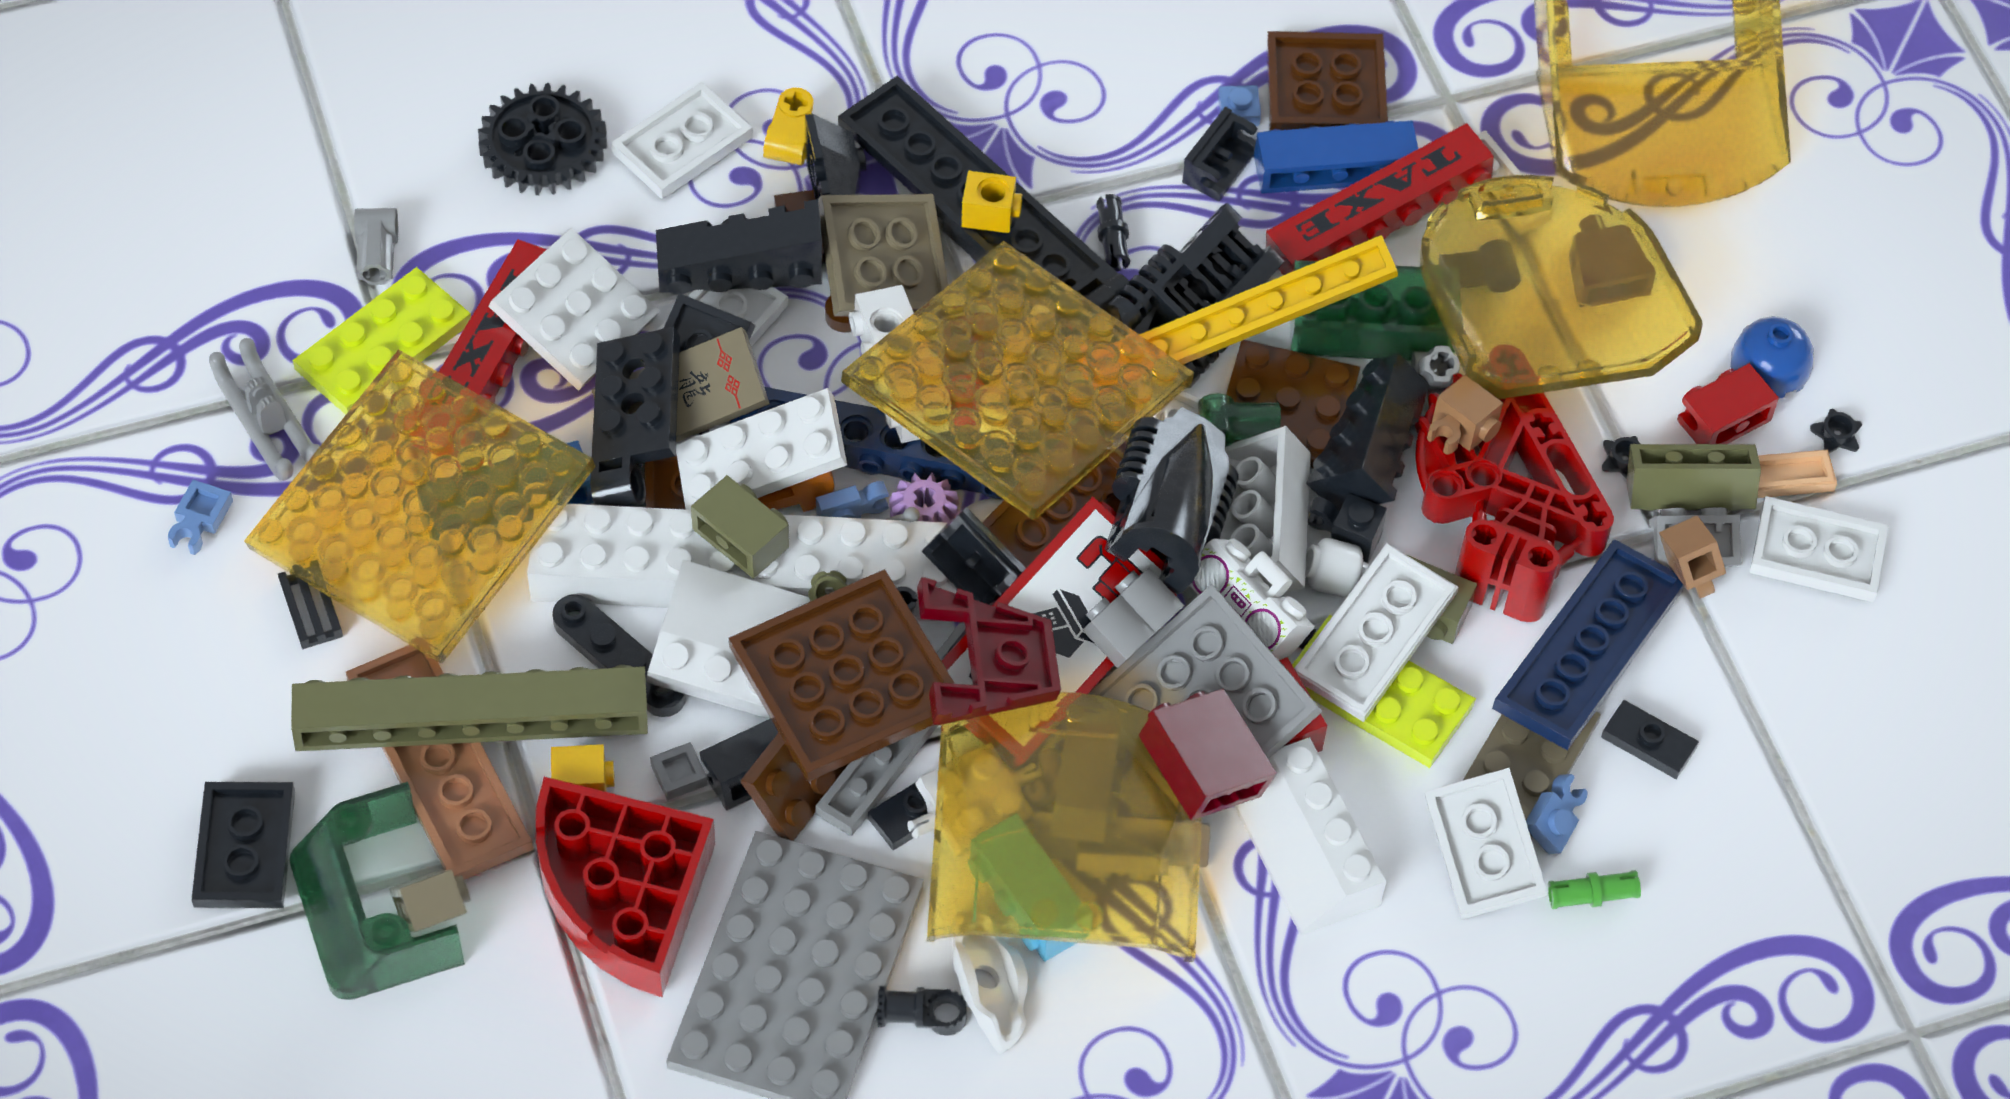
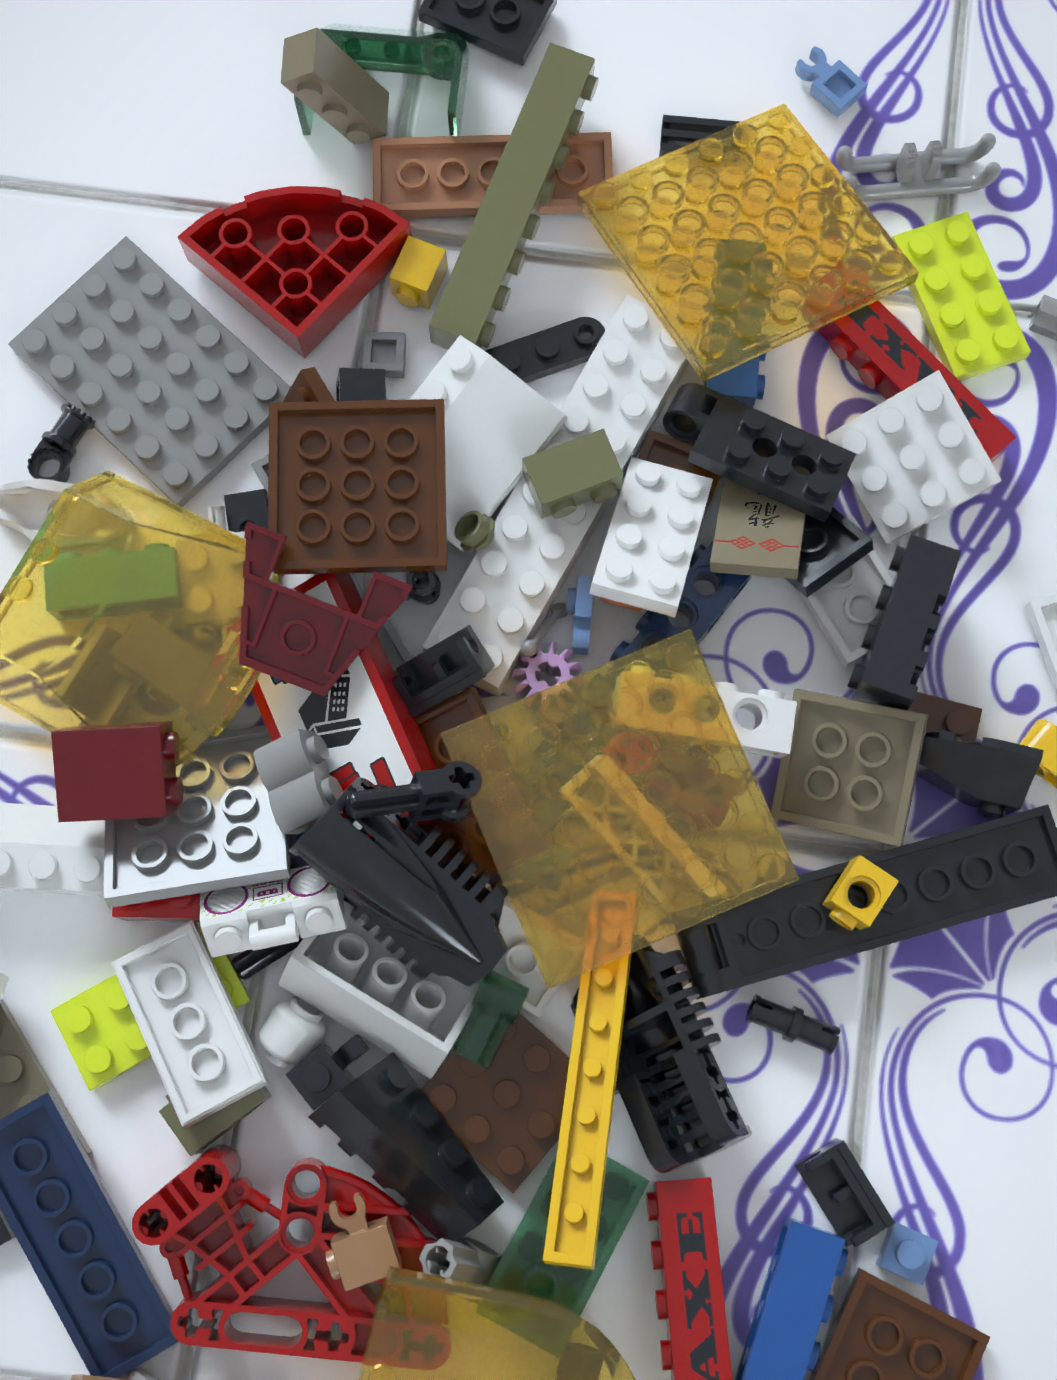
camera: 120 degrees right, 20 degrees up
(1093, 483) = (425, 798): none -> black connector

